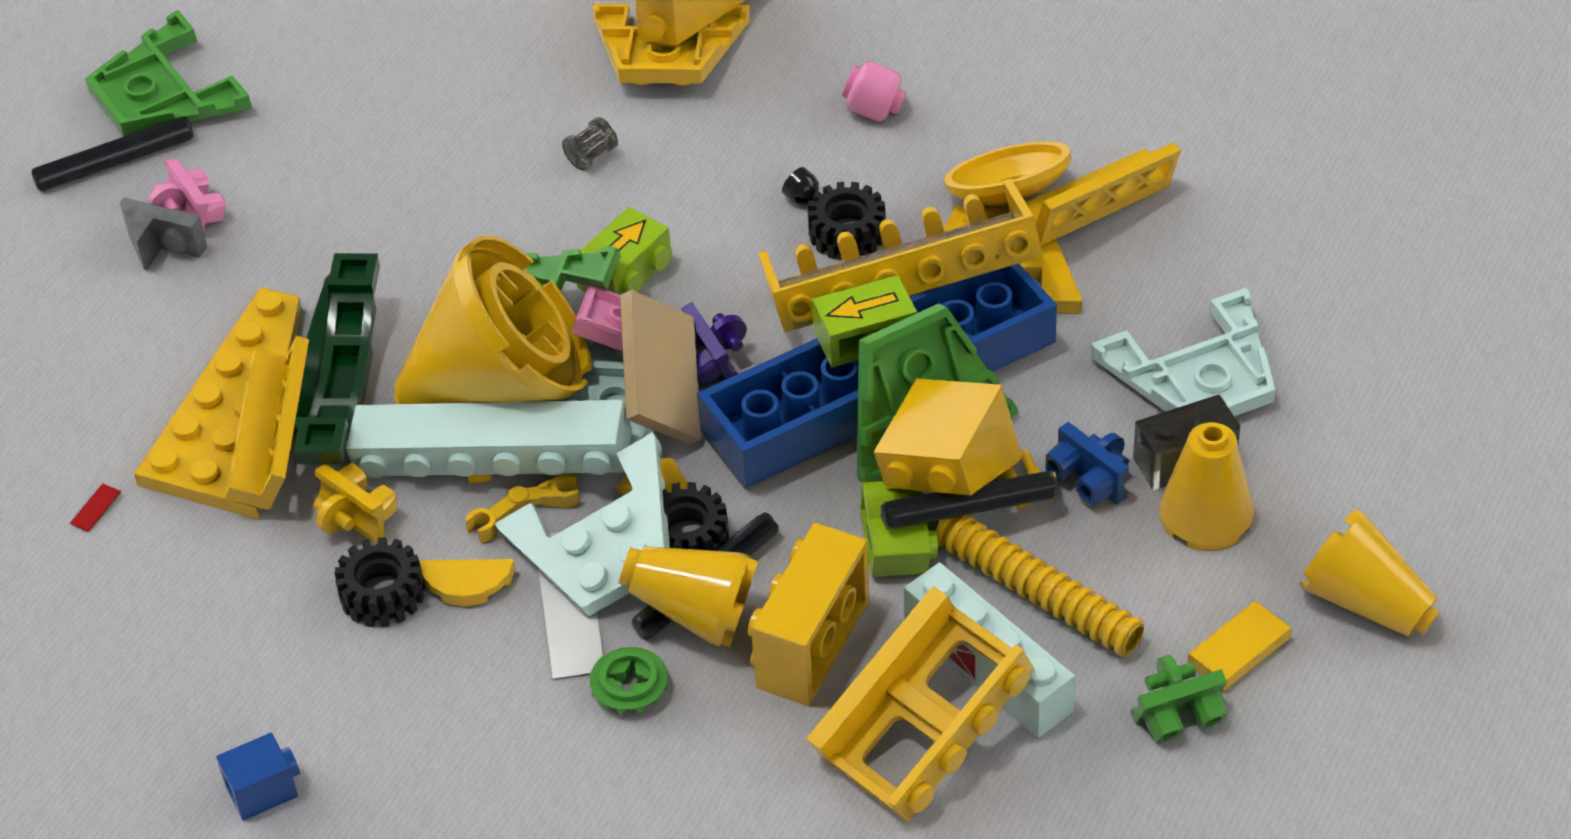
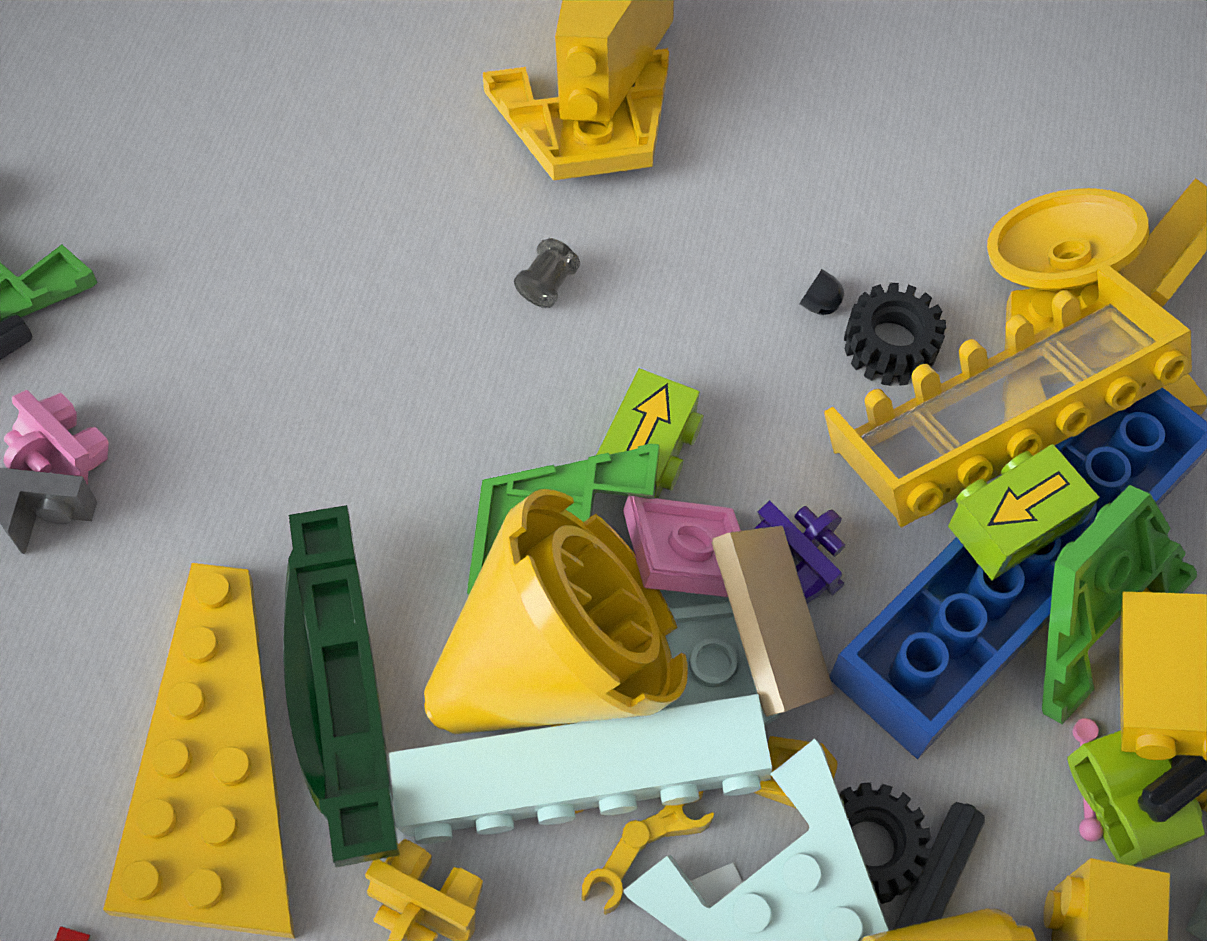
camera: 20 degrees left, 15 degrees up
(266, 425) = (274, 805): yellow fence -> none
(874, 91) = (860, 147): bright pink head -> none

